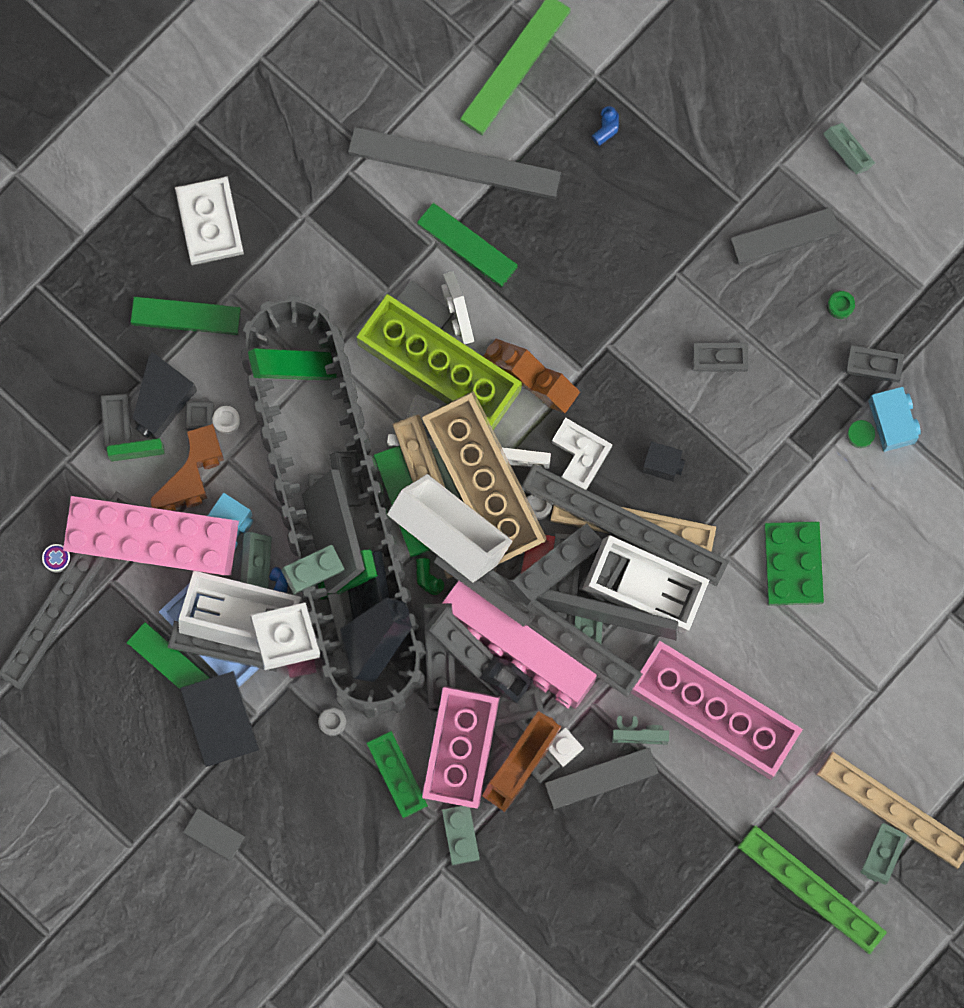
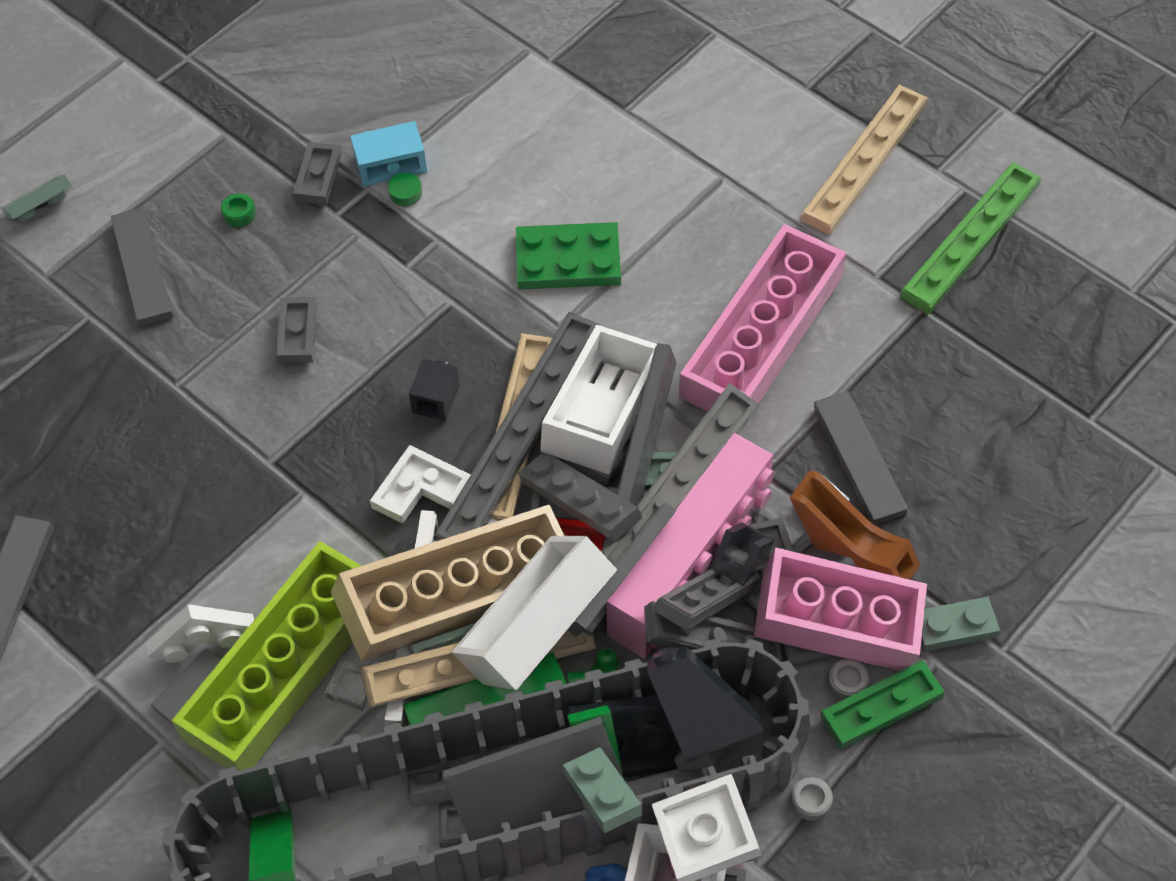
camera: 90 degrees left, 20 degrees down
(418, 754) = (847, 678): none -> light grey tile
(467, 245) = (105, 636): green tile -> none
(544, 383) = (325, 517): dark orange arch -> none
(652, 735) = (800, 419): sand green plate -> none
(883, 854) = (922, 160): sand green plate -> none

